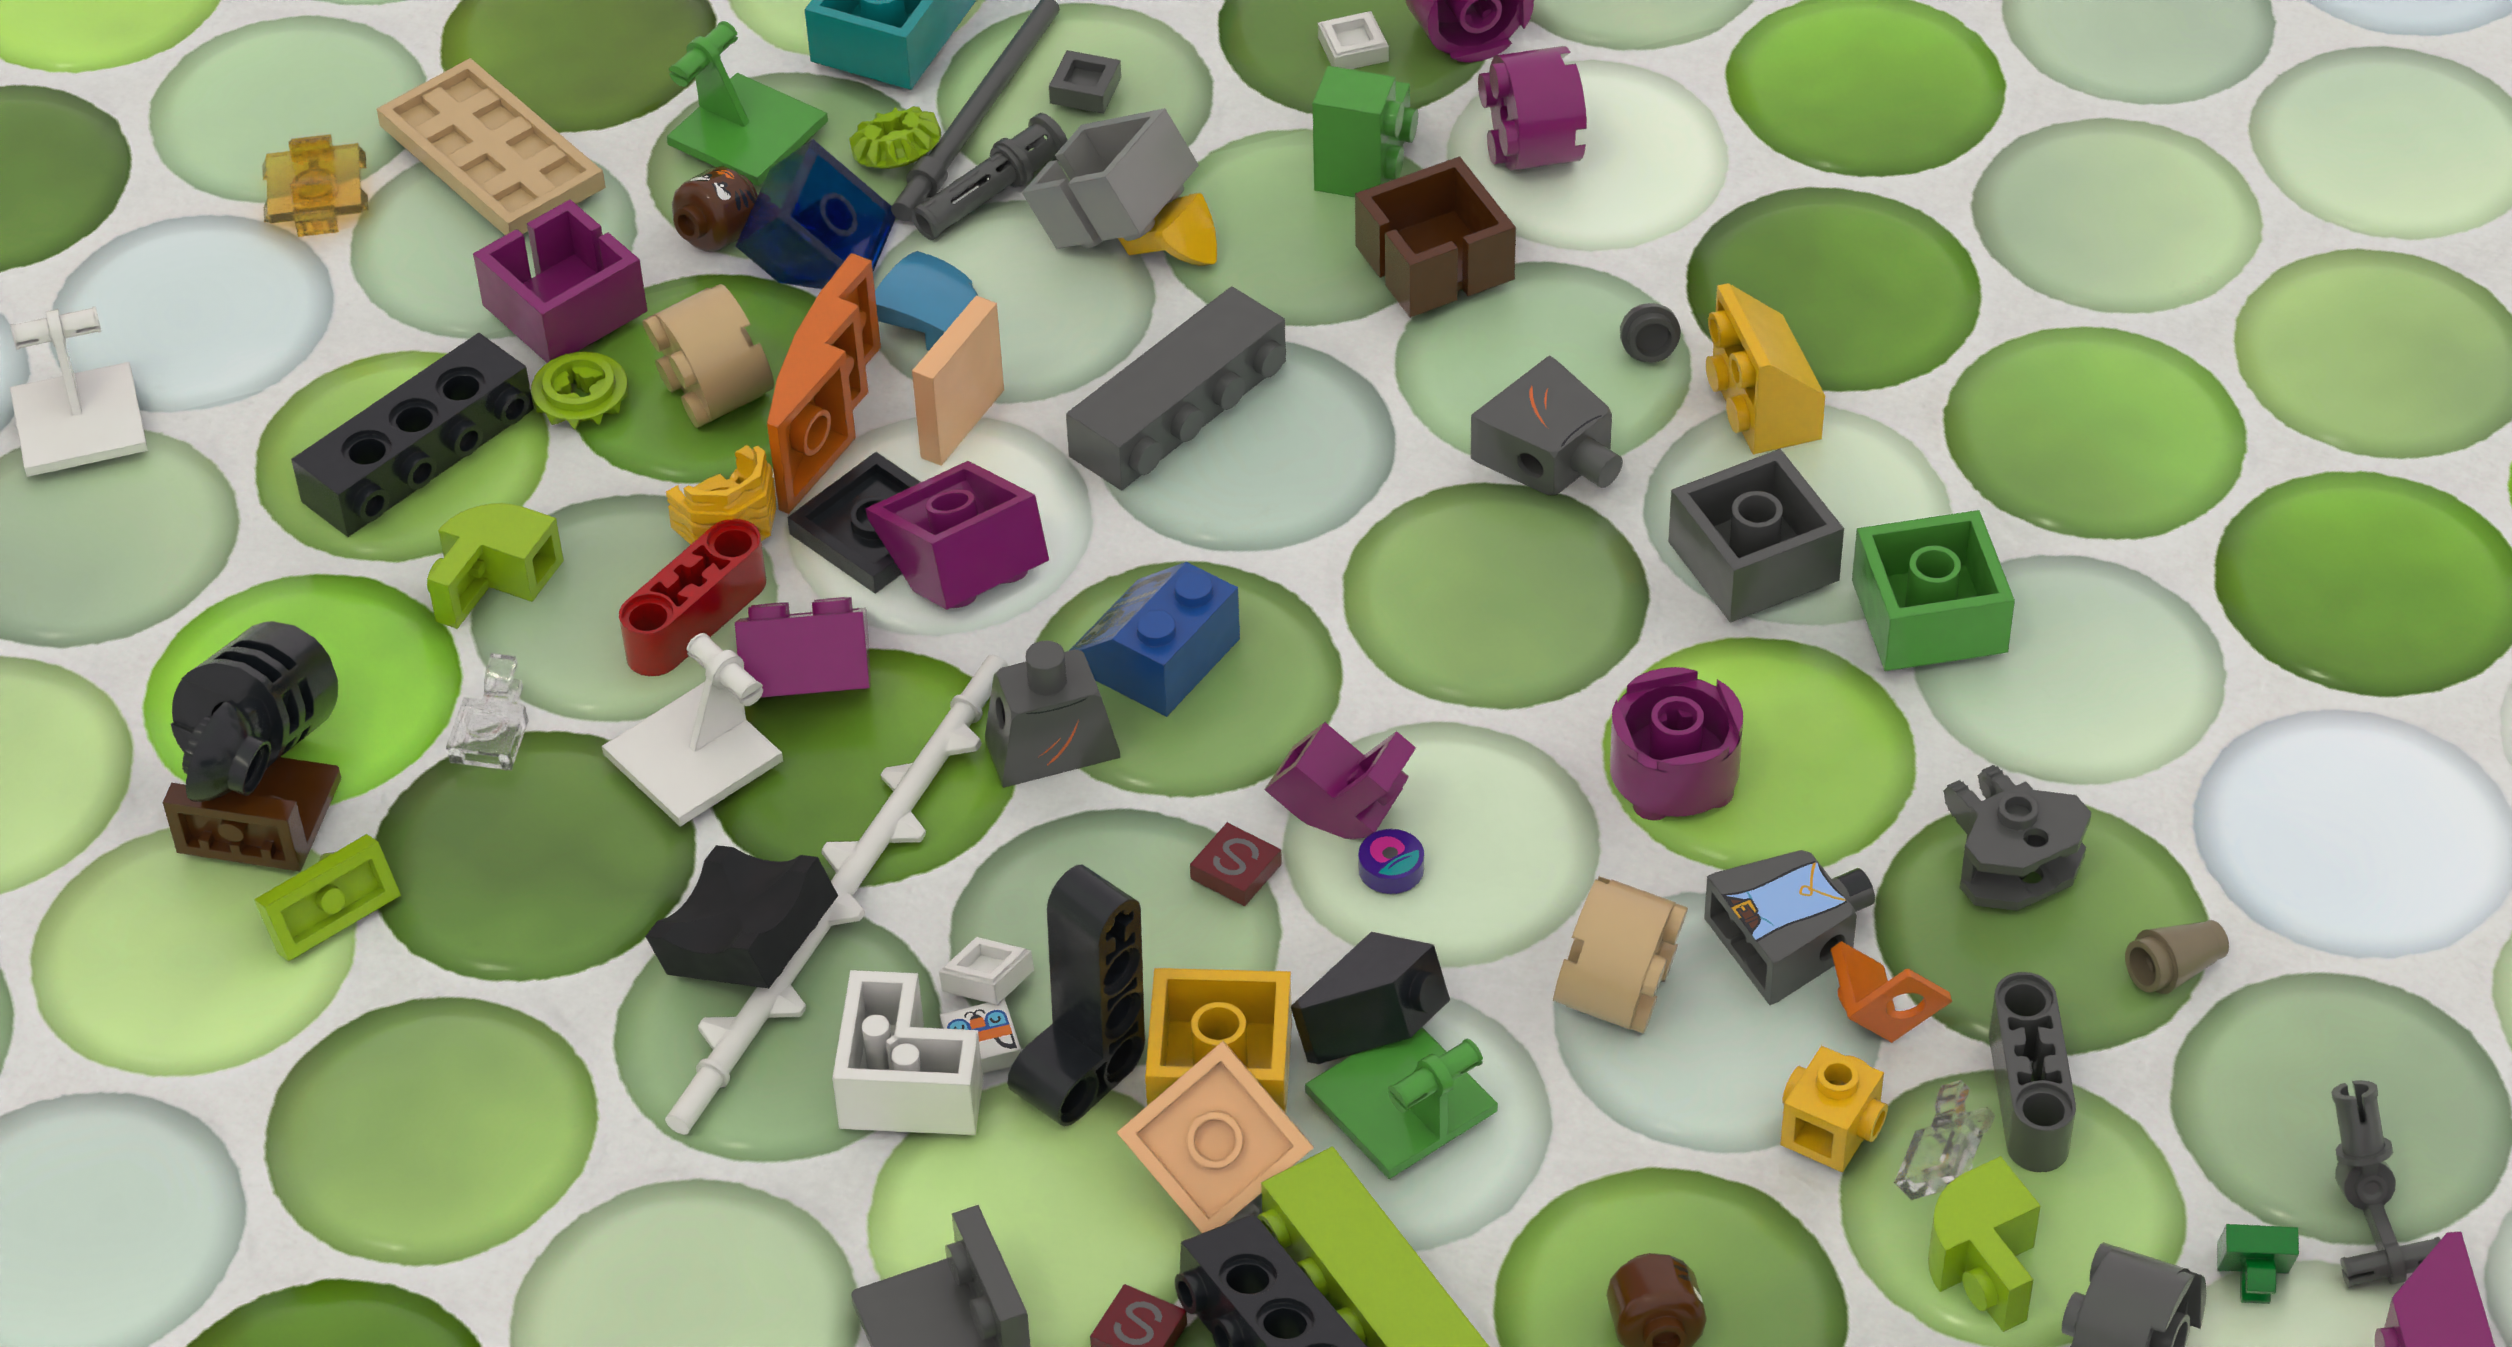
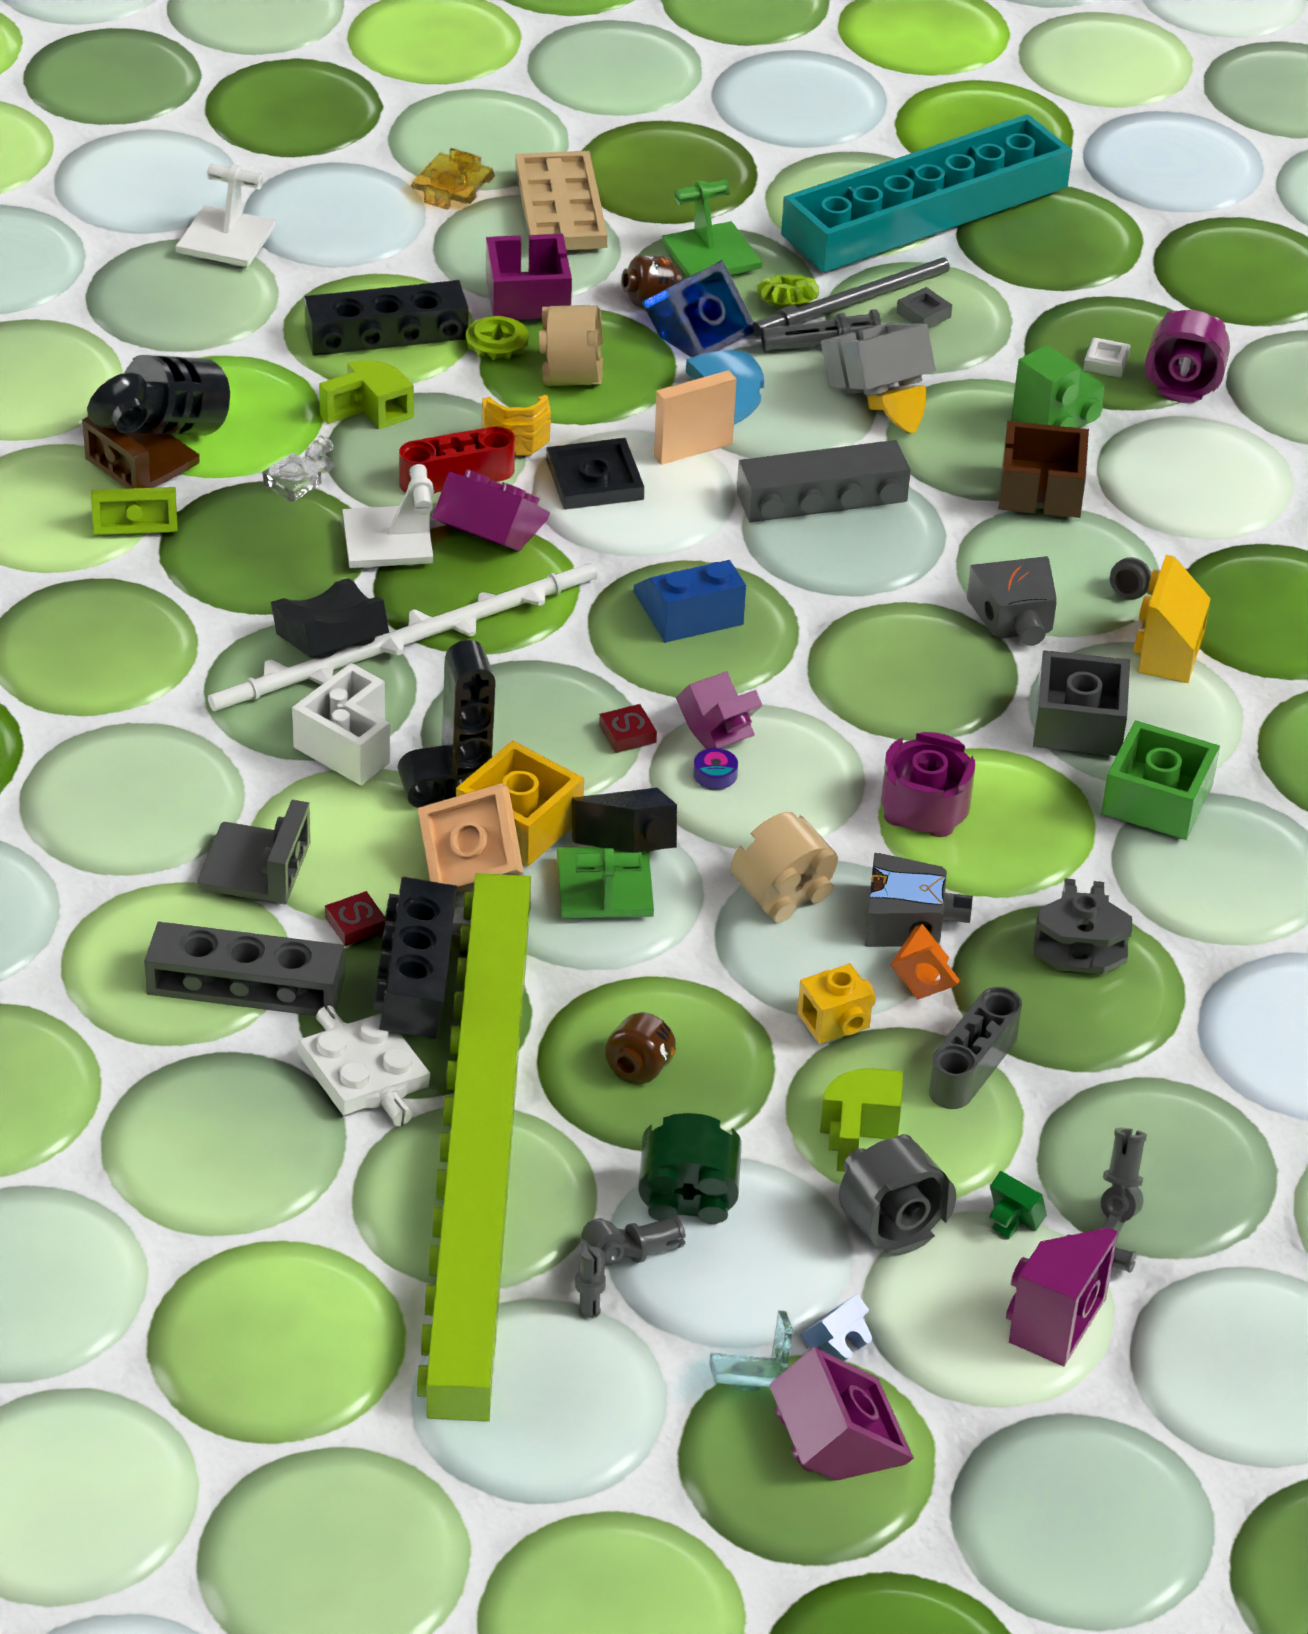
camera: 30 degrees right, 5 degrees down
(823, 381) = (617, 384): orange slope -> none
(961, 534) = (627, 496): magenta slope -> none
(986, 970) = (428, 709): white tile -> none
(995, 1030) = (409, 736): tile -> none
(1047, 716) = (588, 602): dark grey torso -> none
(1533, 108) = (1167, 429): magenta brick -> none
(1946, 1147) = (893, 1054): clear plate -> none
(2174, 954) = (1126, 1035): dark tan cone -> none

